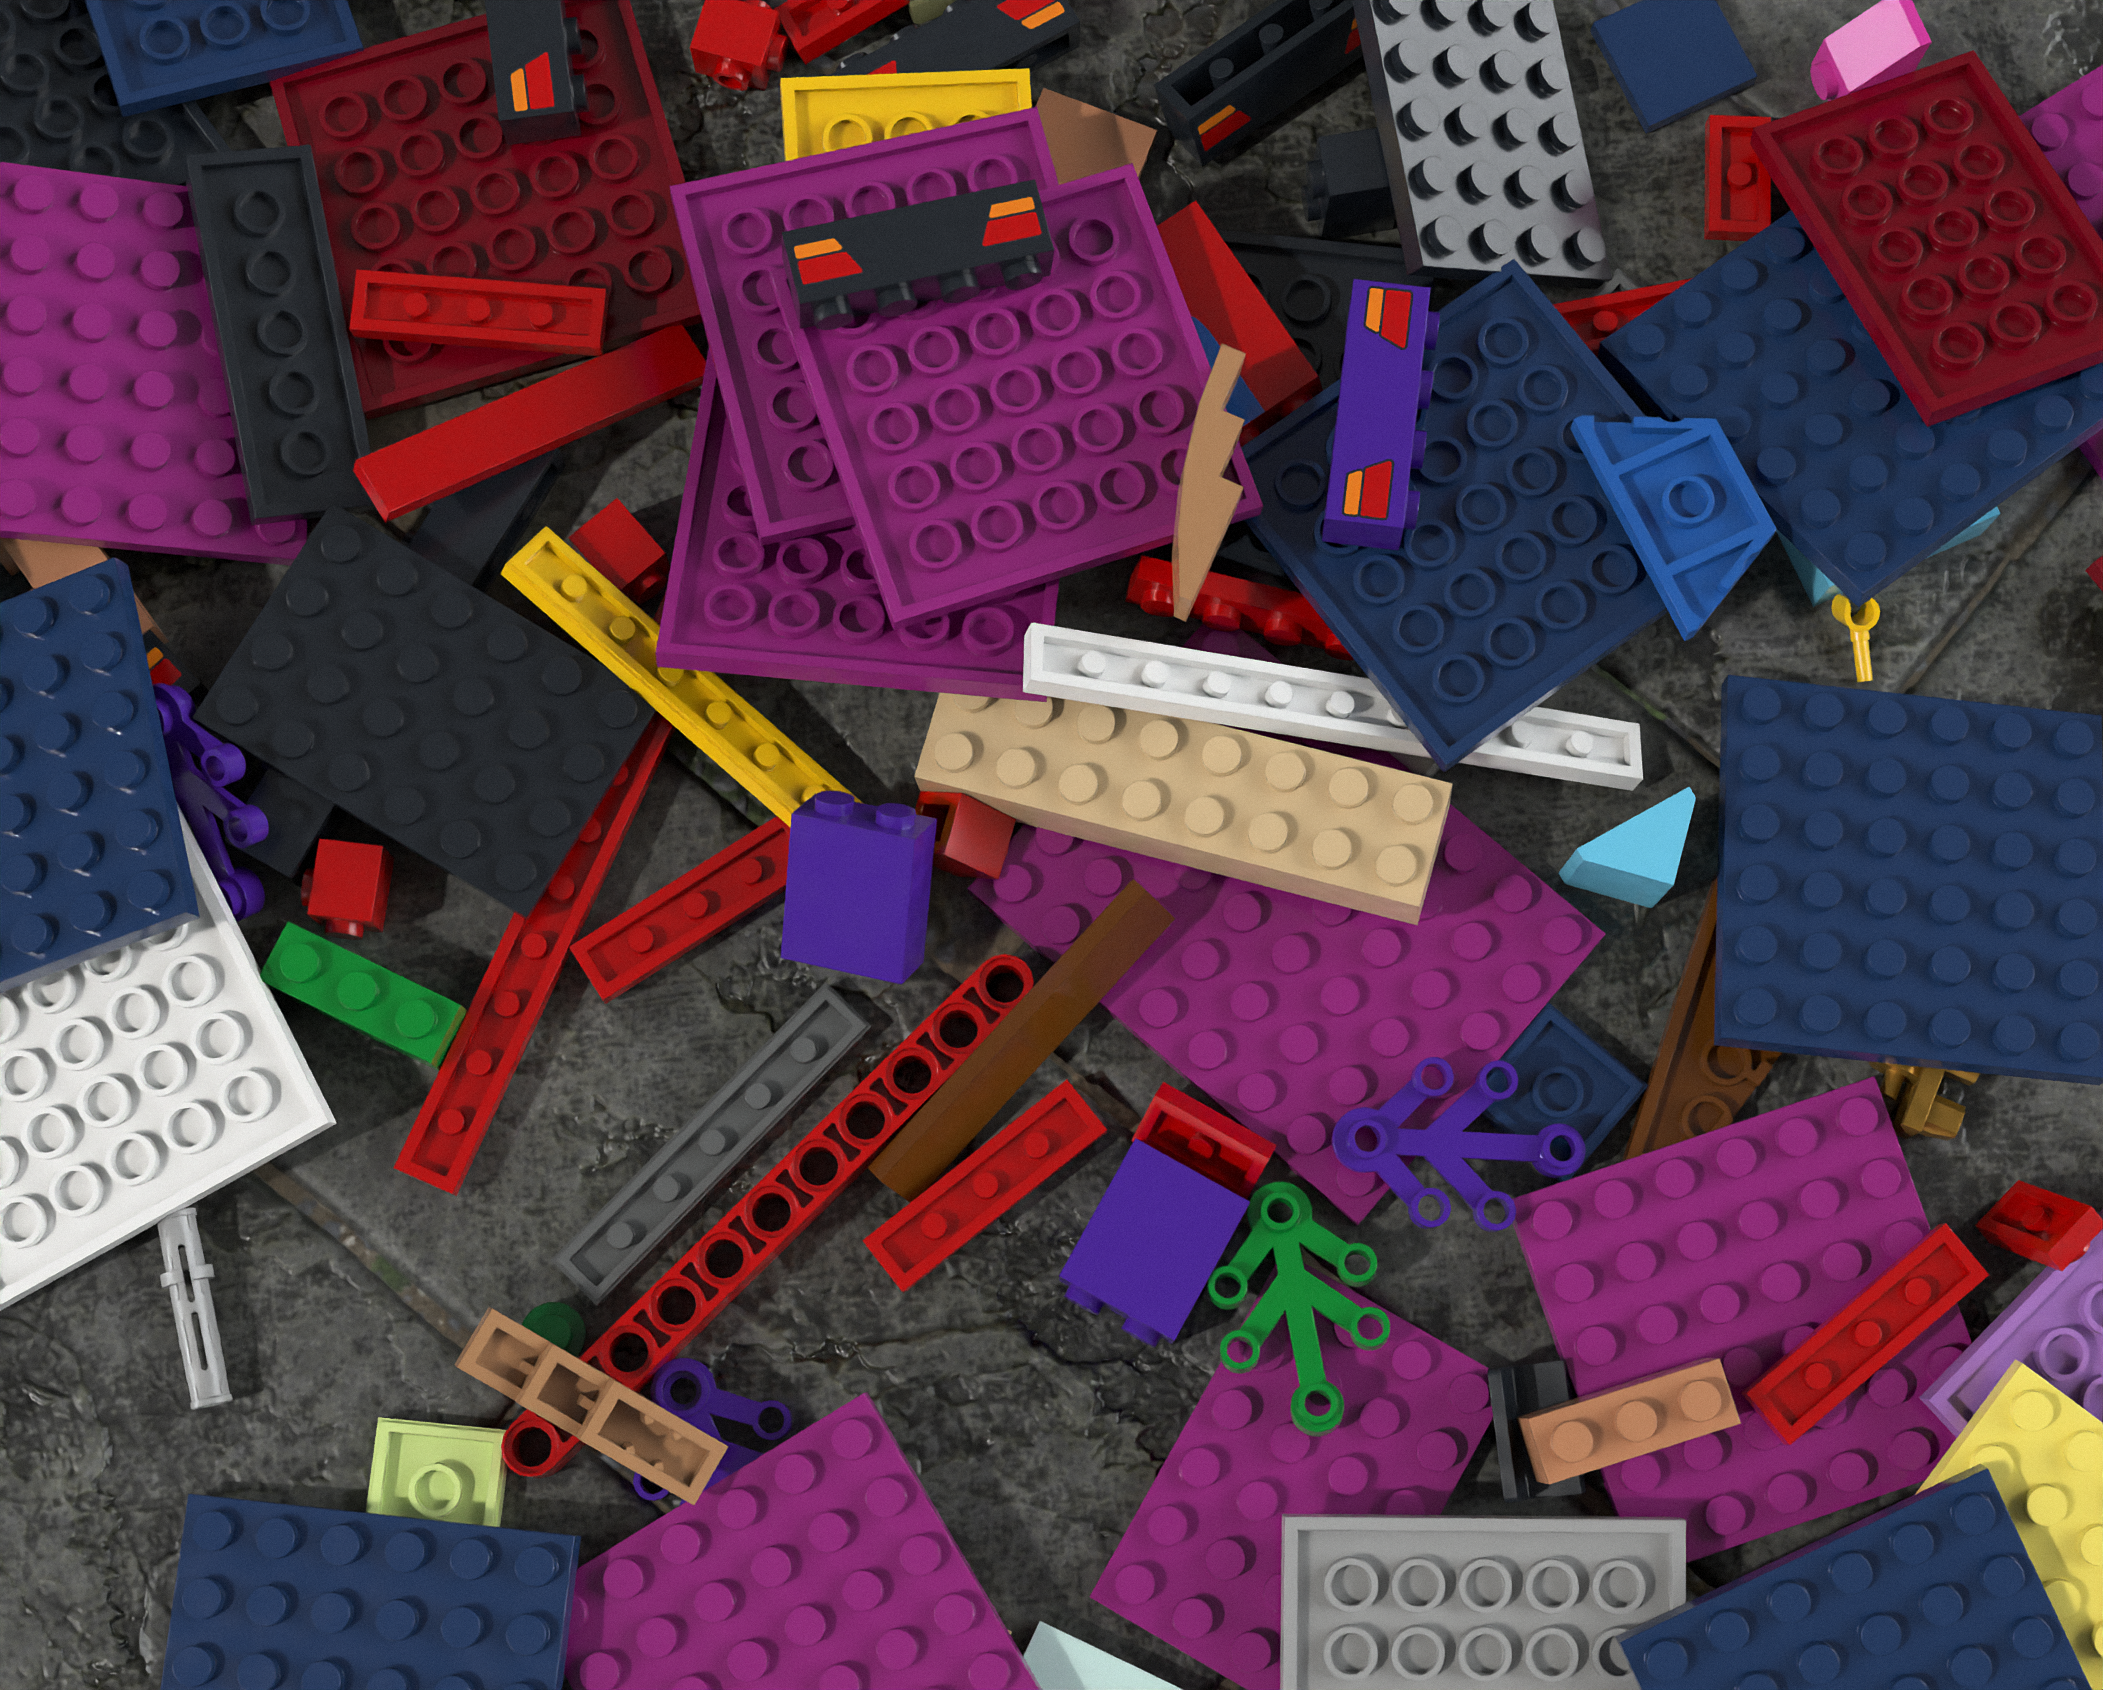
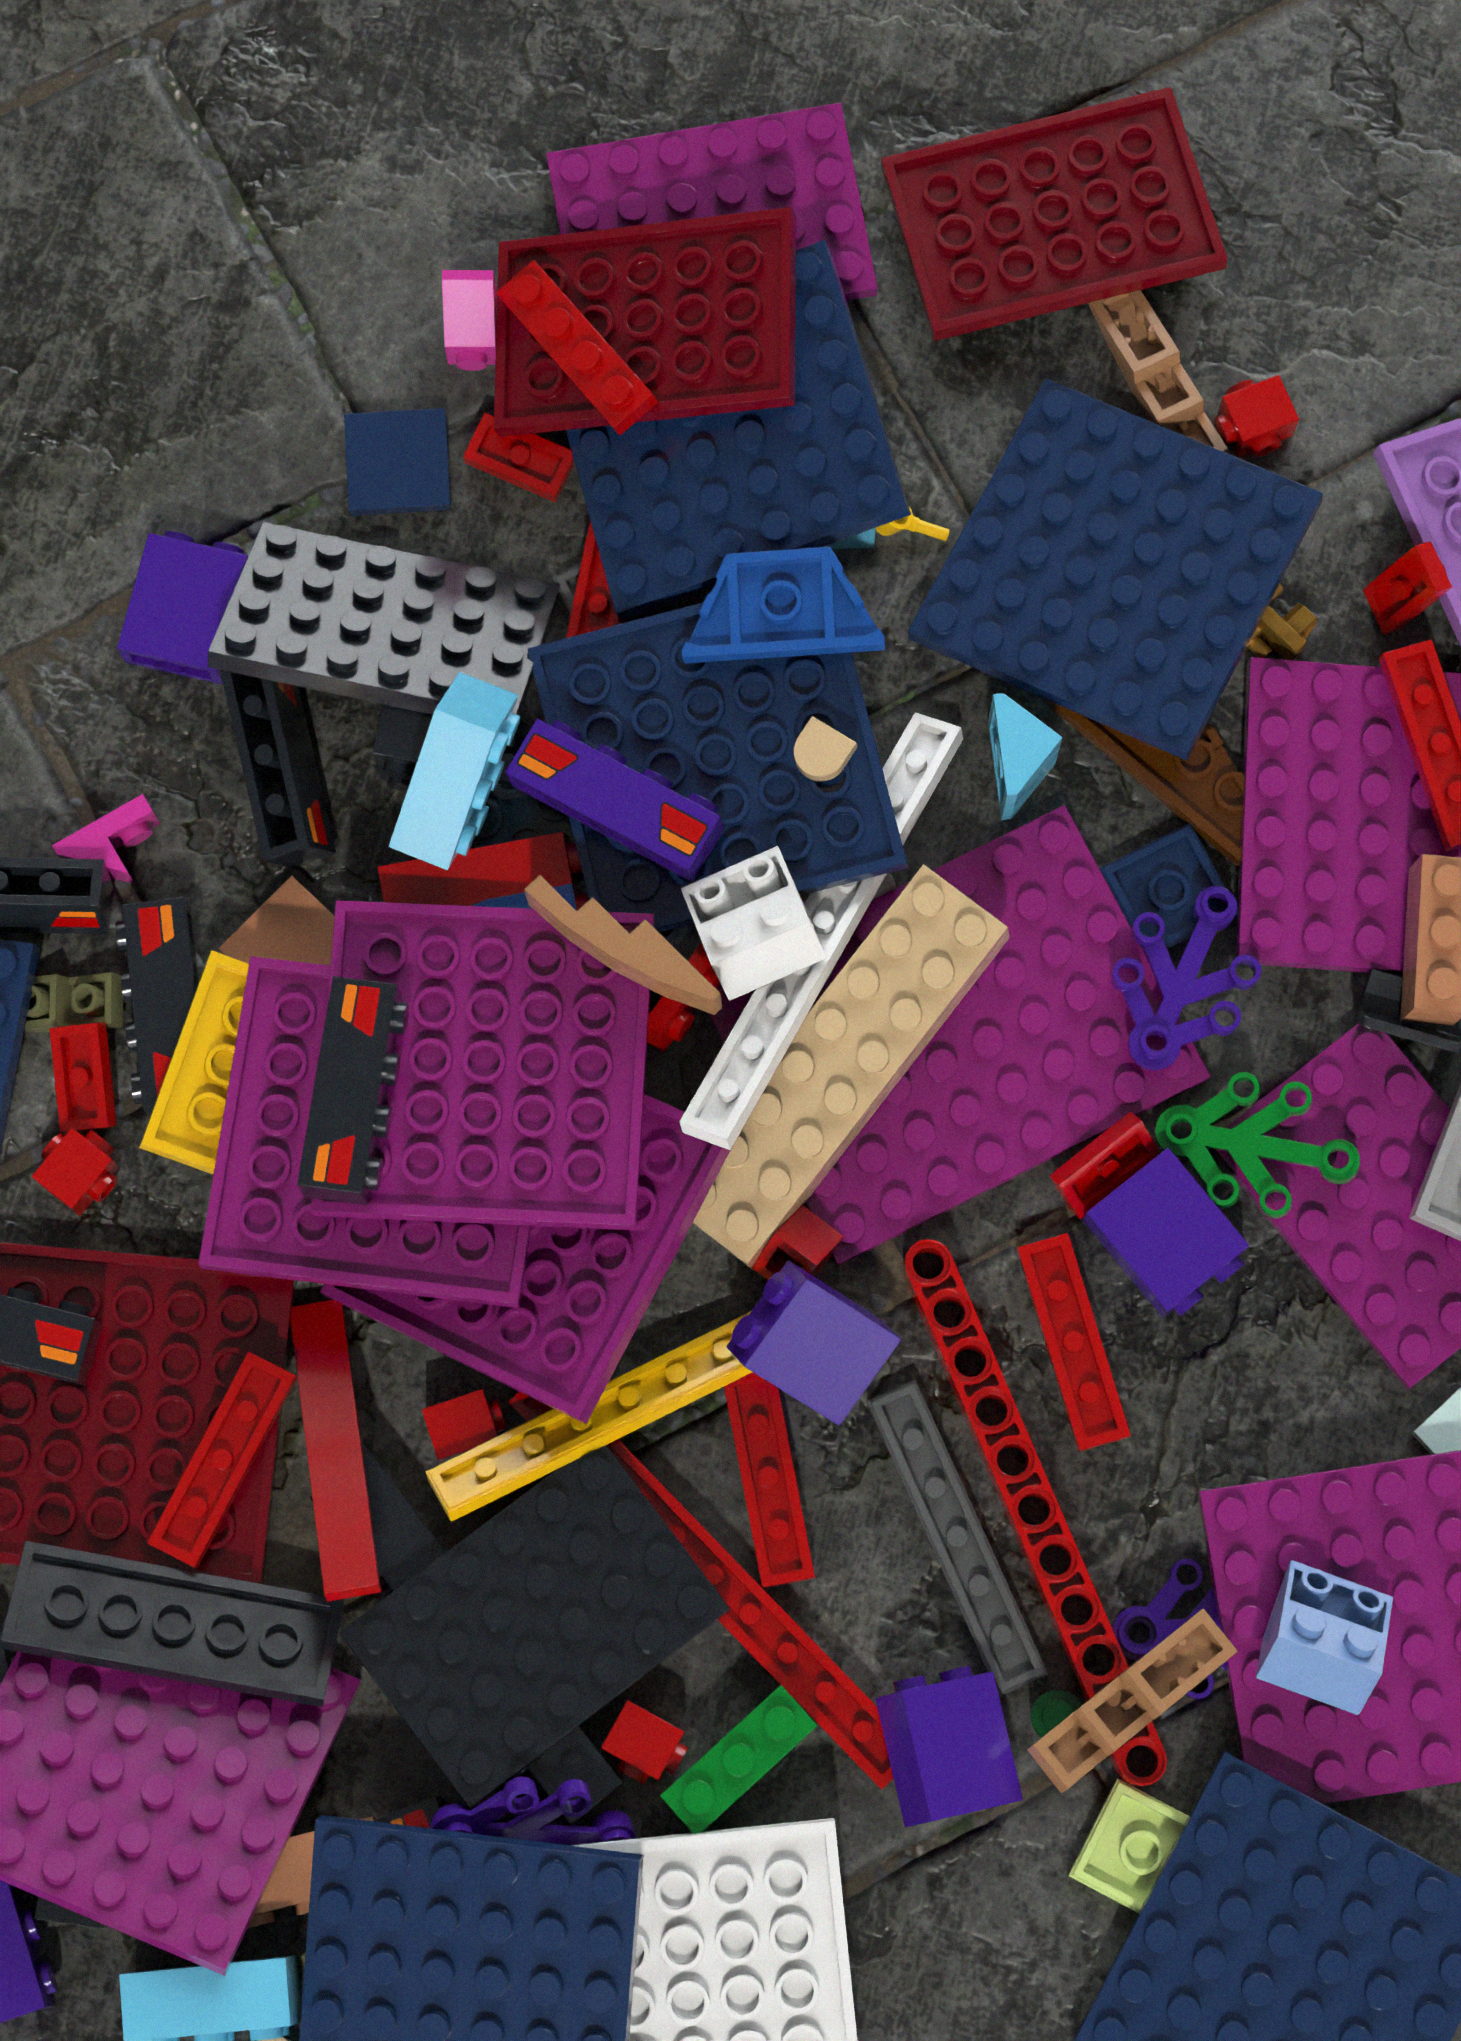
camera: 65 degrees left, 0 degrees up
(181, 1231) = (930, 1989): light grey pin -> none
(465, 1221) = (948, 1746): none -> dark purple brick
(747, 1601) = (1325, 1638): none -> medium blue slope
(1021, 1042) = (978, 1269): reddish brown tile -> none
(1299, 620) = (753, 923): none -> white slope
(1331, 223) = (456, 771): none -> medium azure brick
(1533, 618) = (822, 751): none -> tan tile
(1885, 172) = (577, 347): none -> red plate

